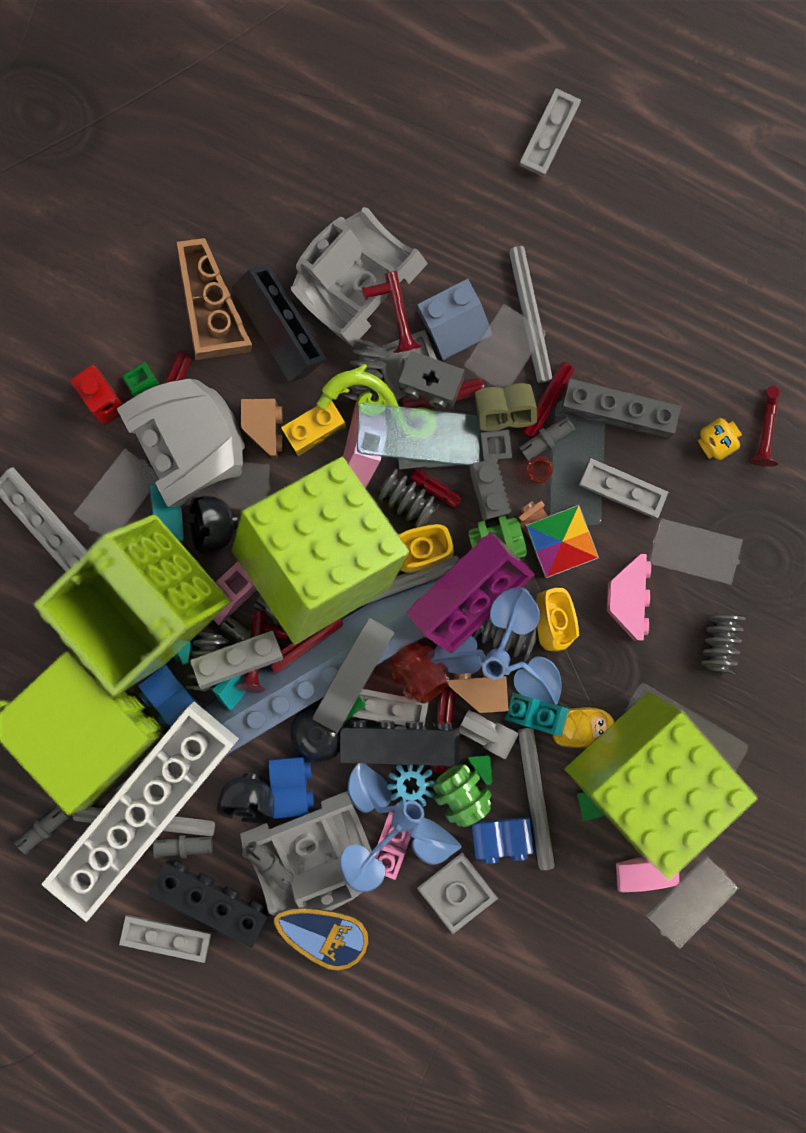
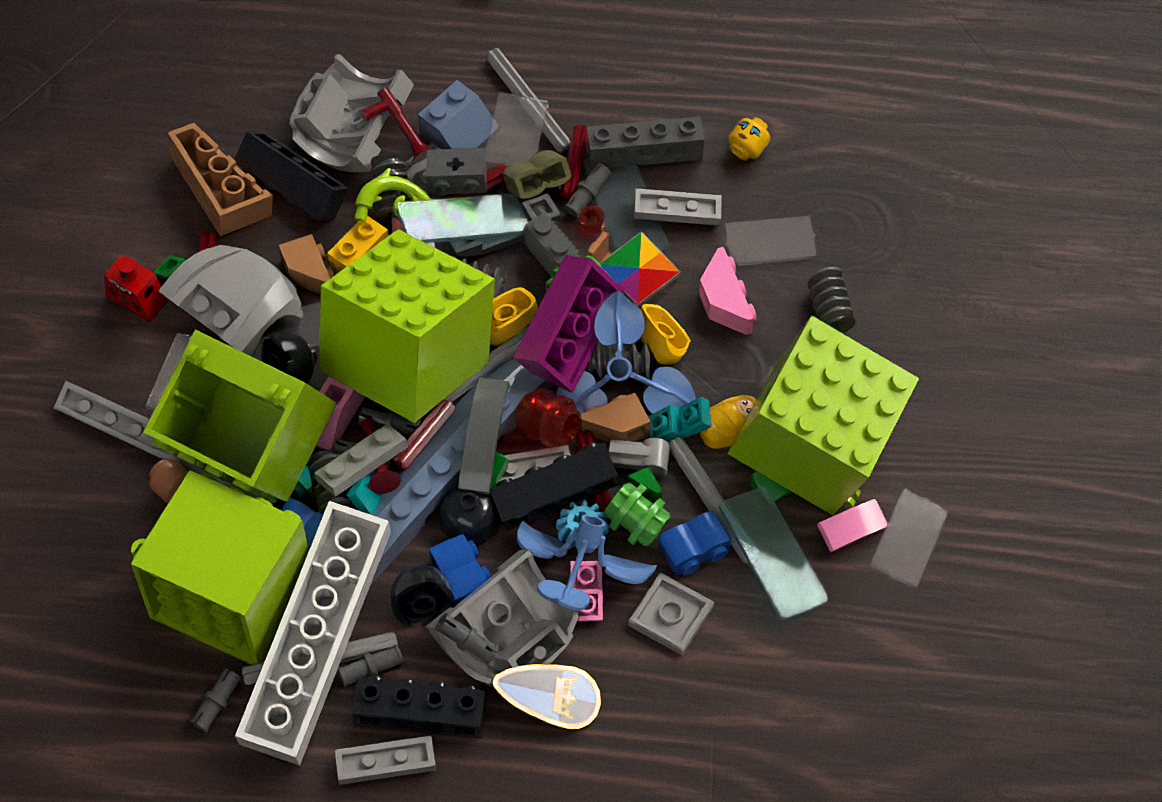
camera: 25 degrees left, 25 degrees down
(436, 489) = (517, 270): dark red axle -> none
(566, 873) = (773, 553): none -> clear light blue piece
(764, 454) = (797, 142): dark red piece -> none

